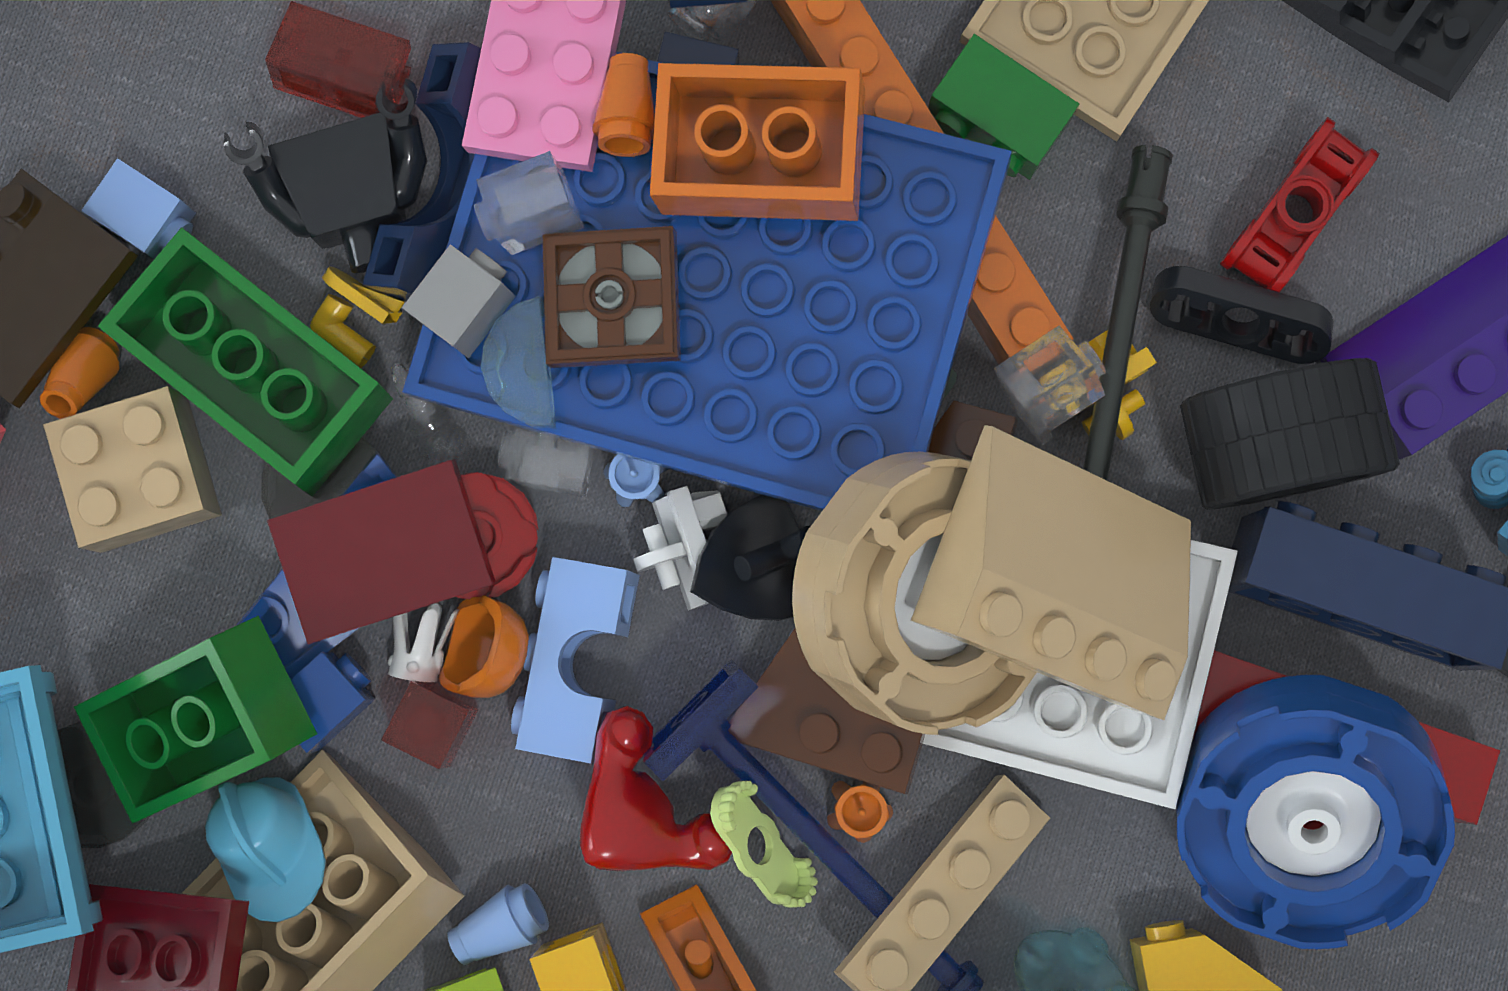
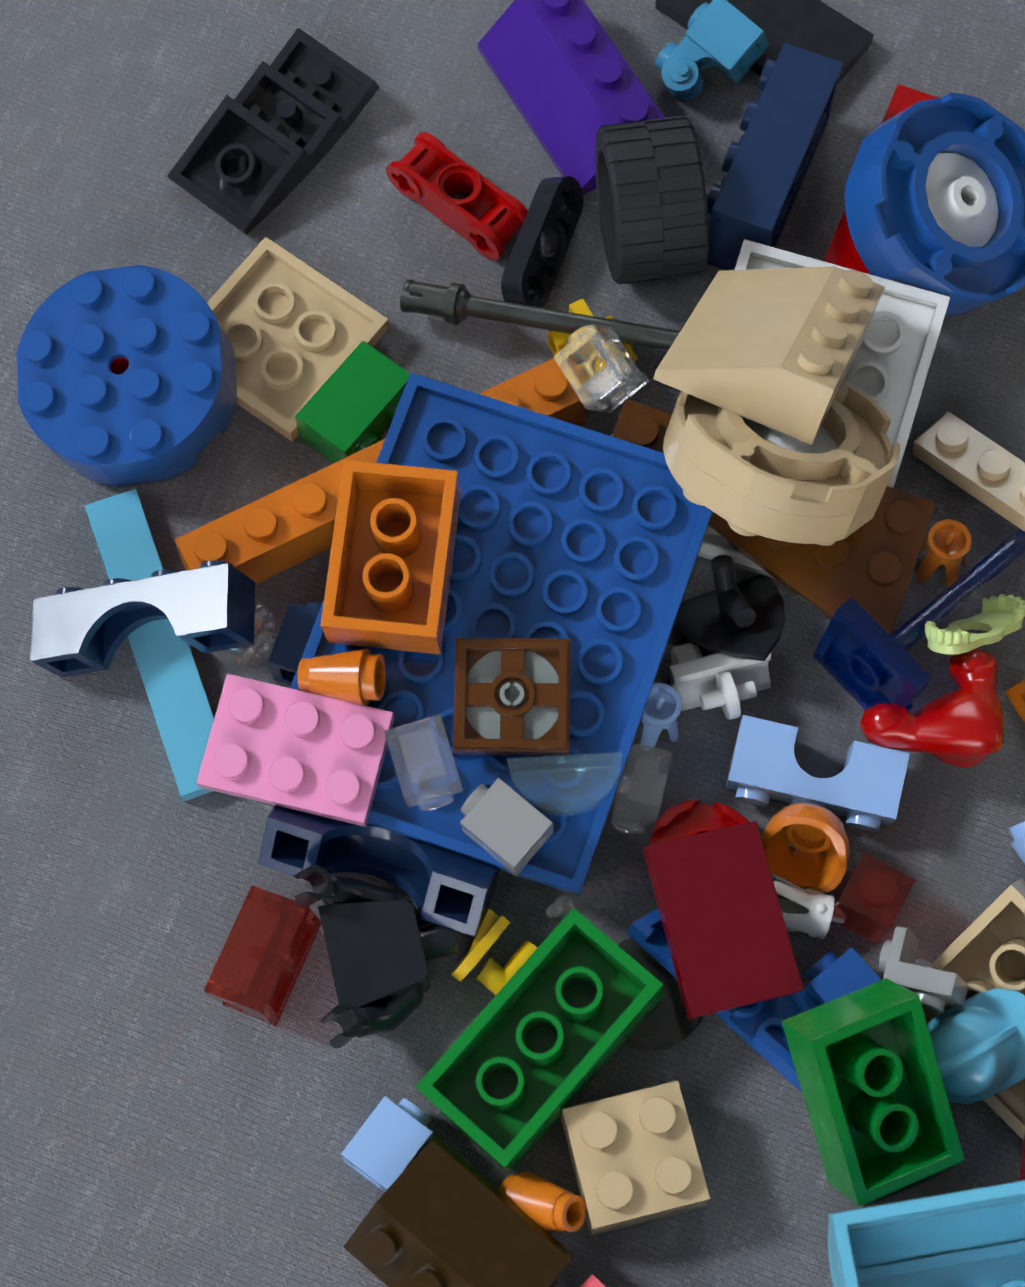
camera: 90 degrees left, 15 degrees down
(323, 781) = (932, 985): none -> light grey bracket

